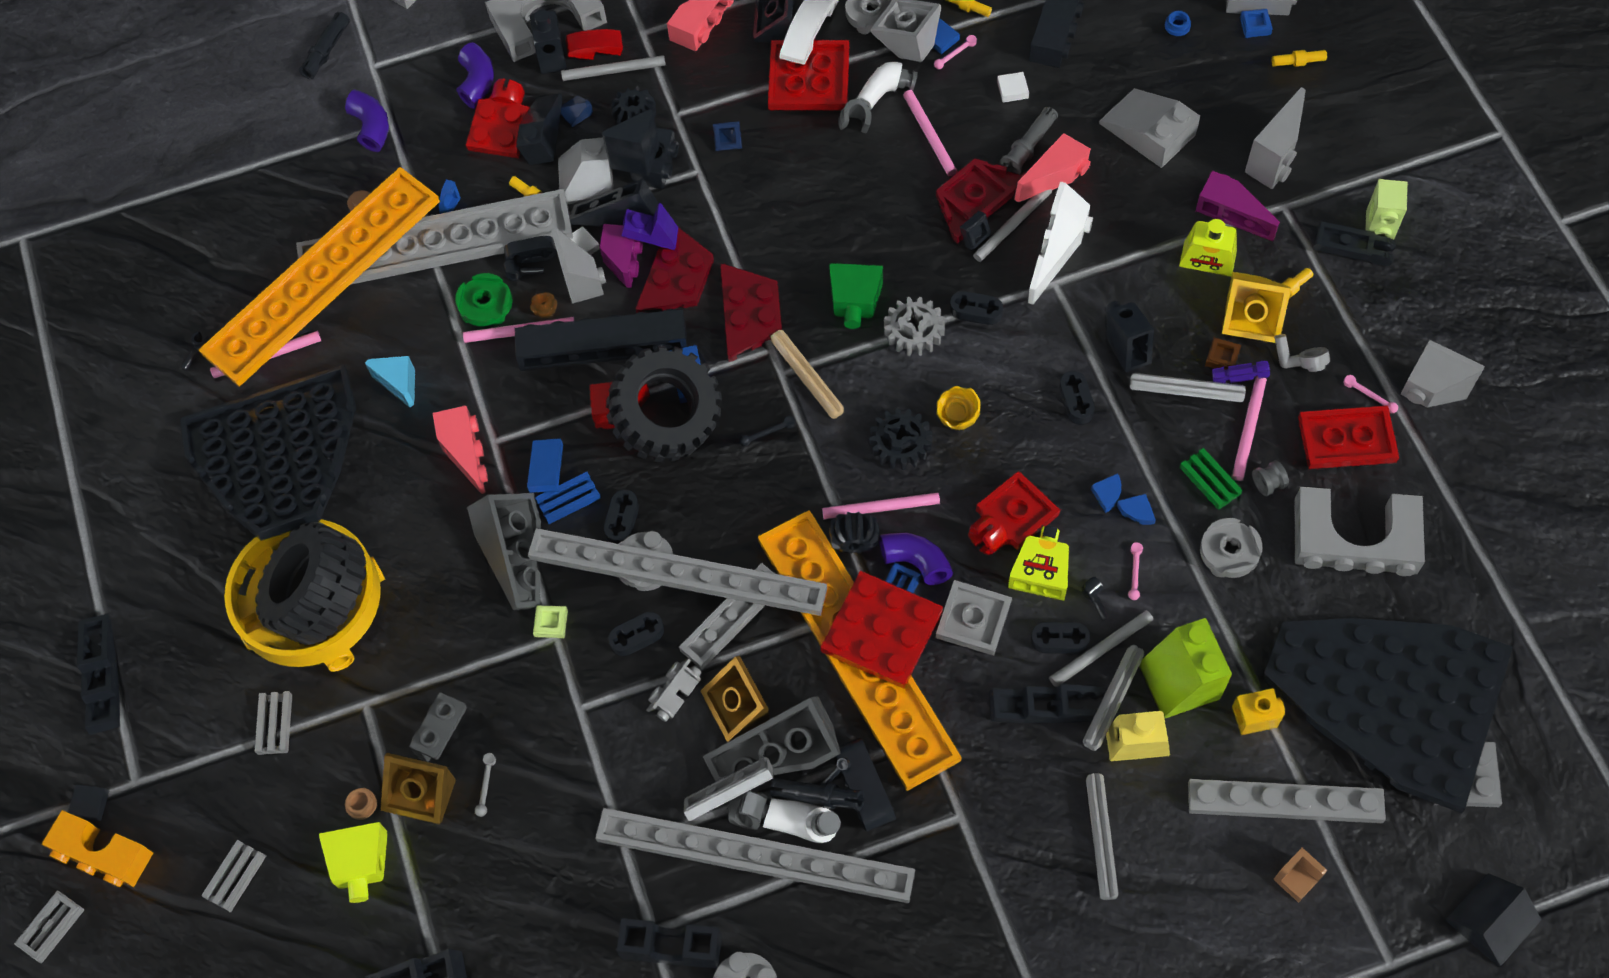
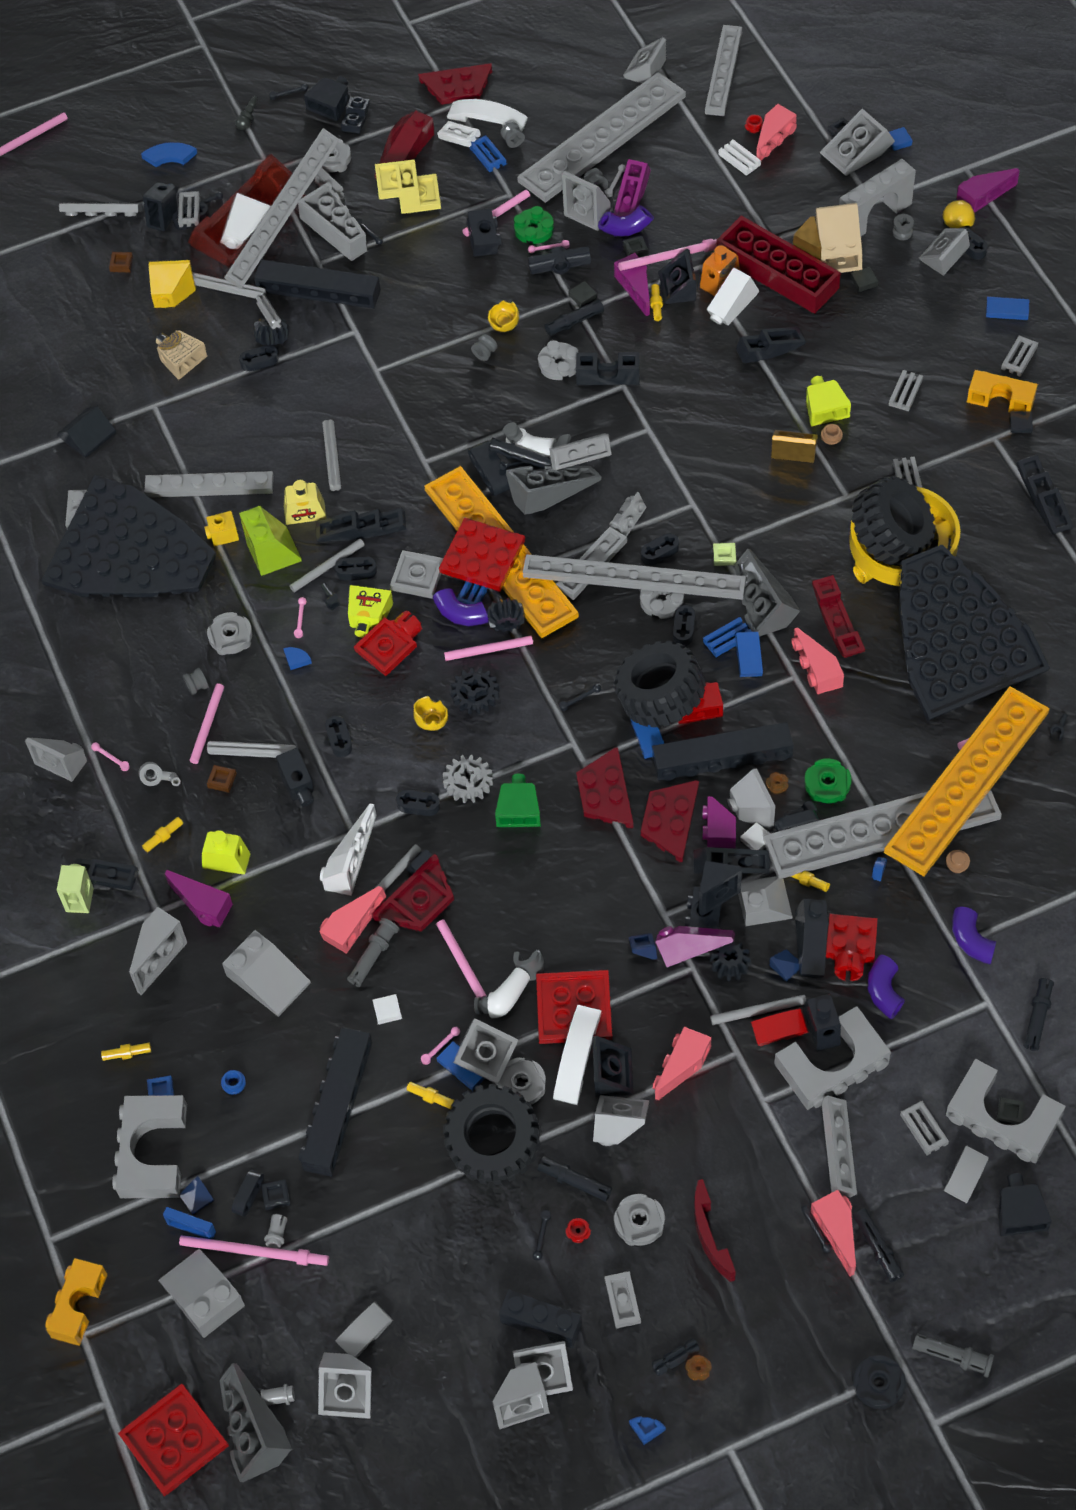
camera: 175 degrees right, 5 degrees down
(396, 375) = (885, 711): medium azure slope -> none
(421, 503) = (836, 617): none -> dark red slope
(437, 727) = (786, 471): dark grey bracket -> none
(489, 760) = (749, 468): light grey hinge -> none
(502, 332) = (794, 762): bright pink bar -> none
(655, 229) = (694, 833): dark purple slope -> none
(672, 113) = (687, 942): none -> slope
(735, 700) = (580, 510): pearl gold slope -> none
(756, 855) = (561, 424): light grey plate -> none
(807, 374) = (552, 740): tan axle -> none
(1107, 492) = (317, 669): blue tile -> none
(1113, 698) = (319, 527): light grey axle -> none
(1218, 471) = (230, 672): green tile -> none
(1241, 372) = (209, 758): dark purple axle -> none
(1255, 307) = (193, 812): yellow slope -> none
(1300, 874) = (206, 442): medium nougat panel -> none
(1321, 546) = (111, 636): light grey arch -> none
(1348, 437) = (133, 717): red plate -> none

